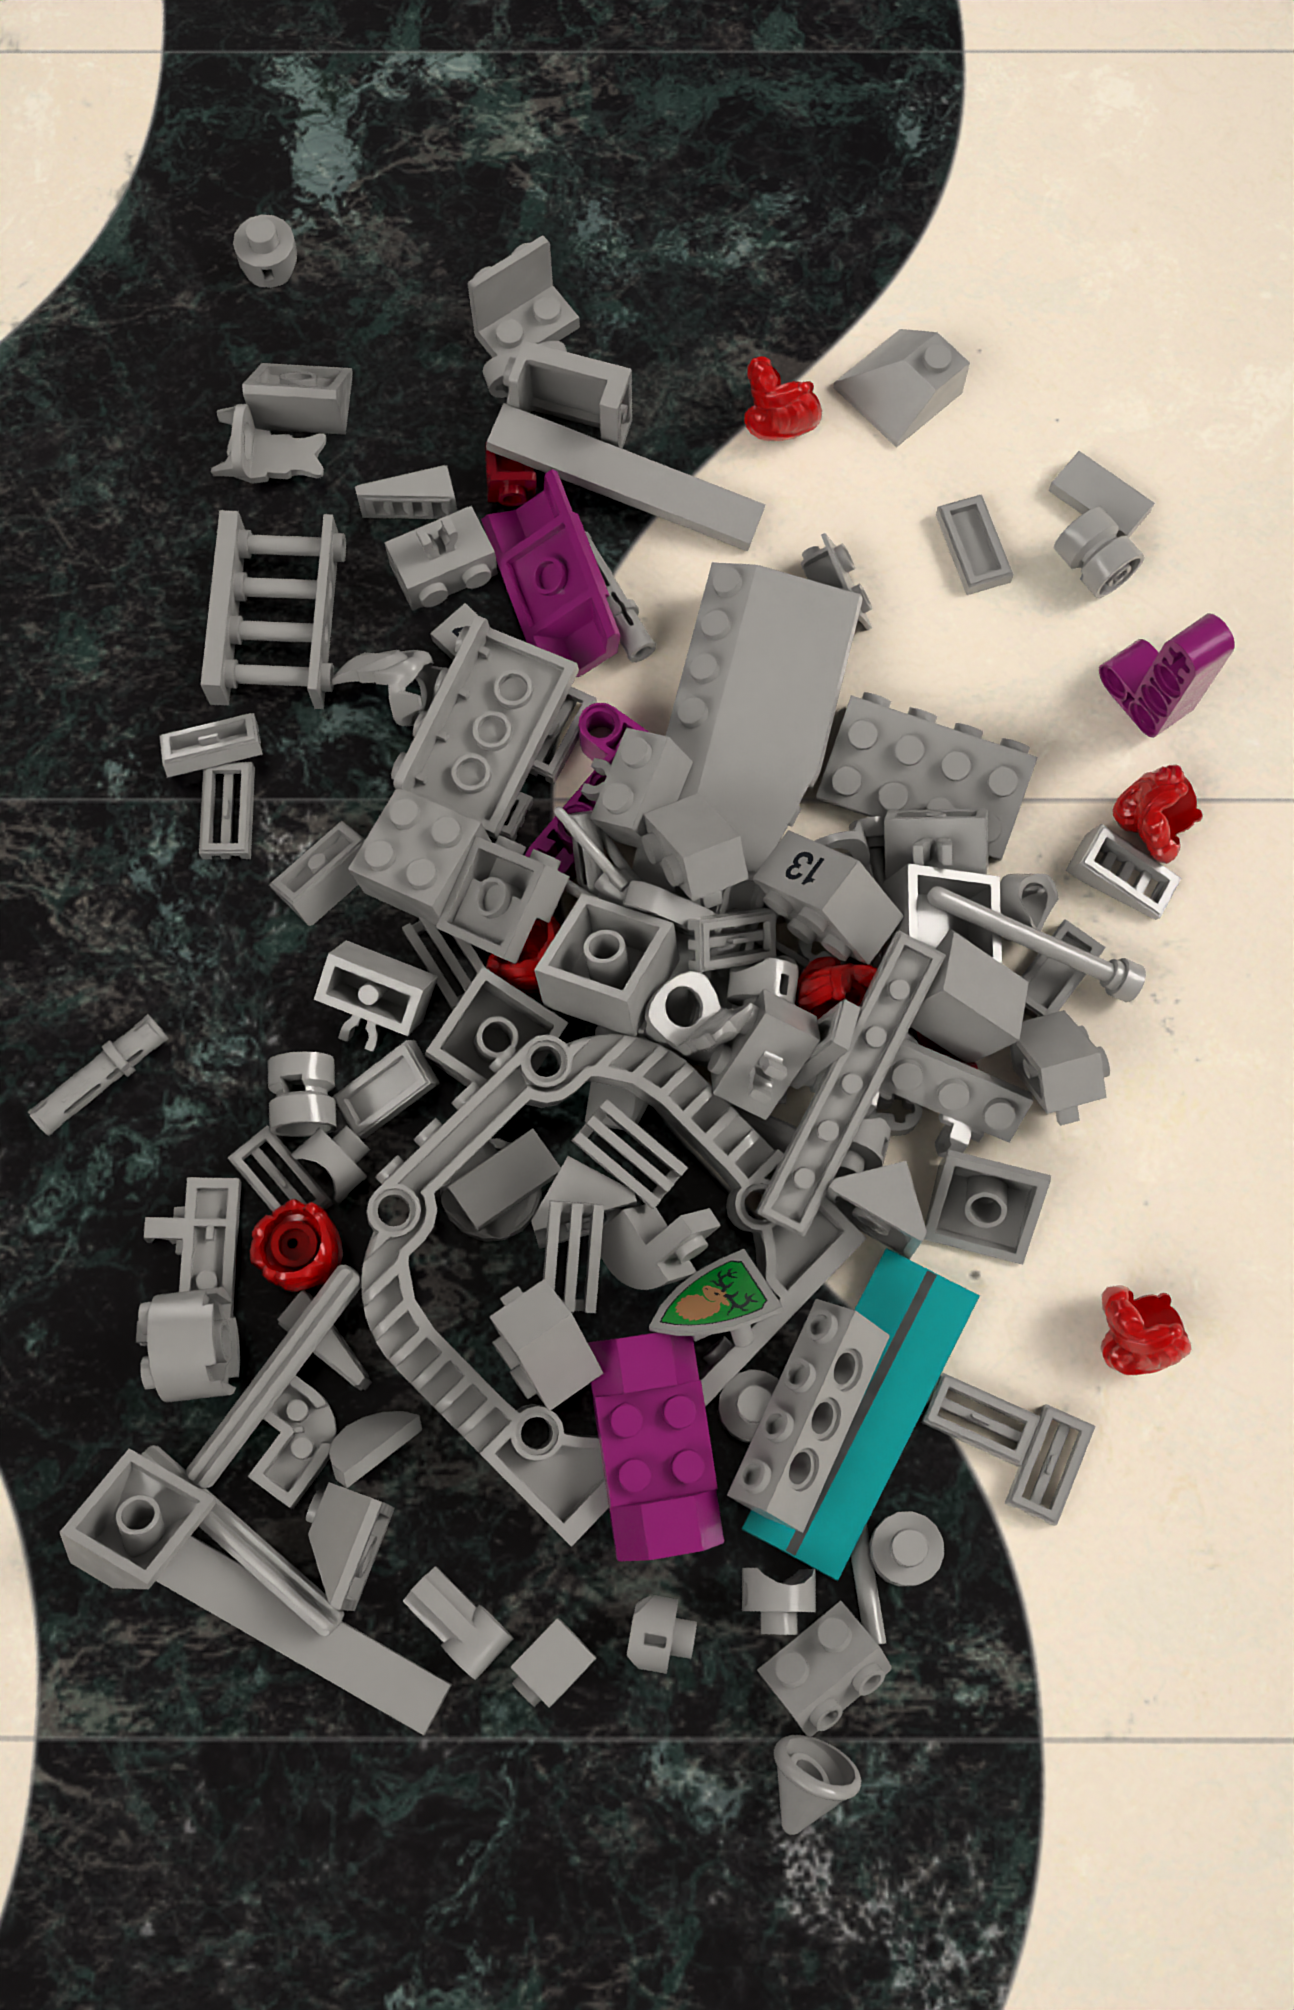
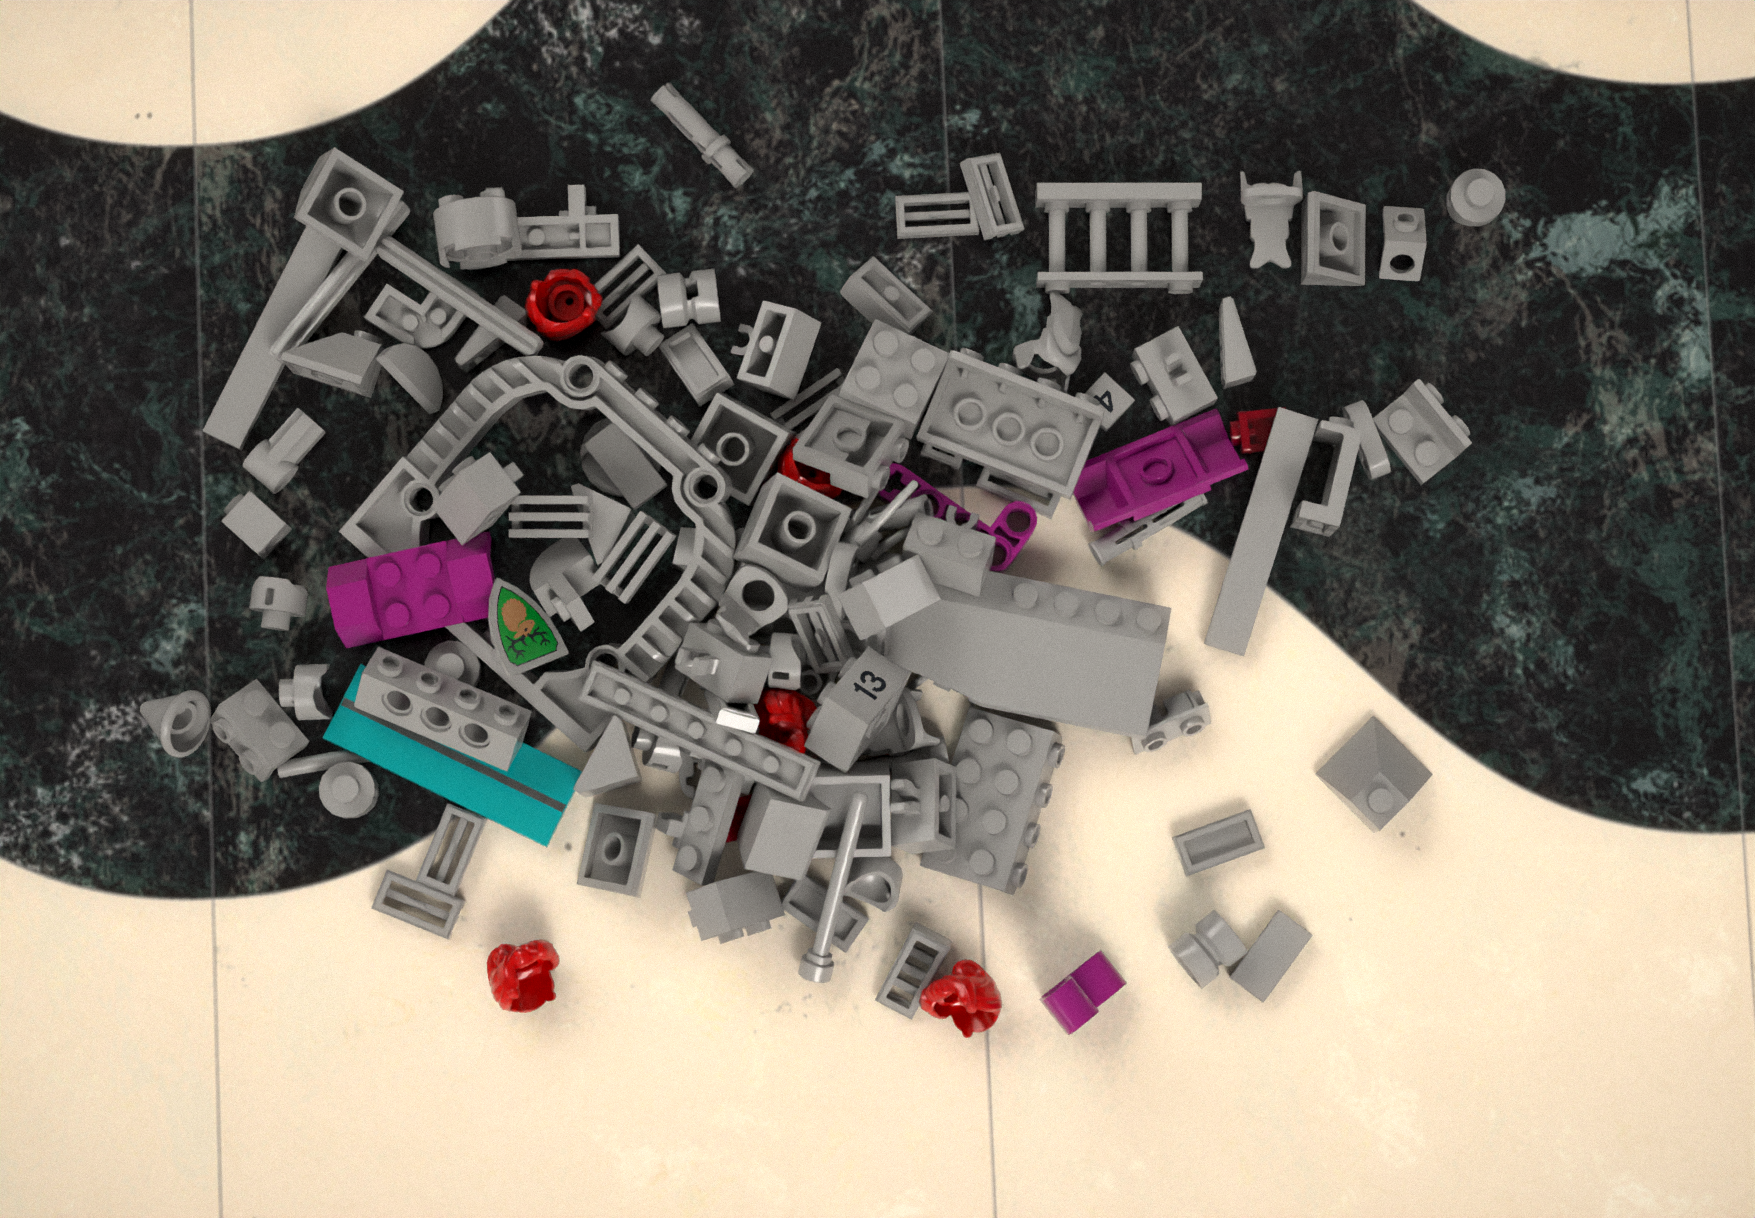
camera: 85 degrees right, 10 degrees up
(303, 316) = (1405, 235): none -> light grey bracket
(779, 409) = (1340, 666): red hair -> none

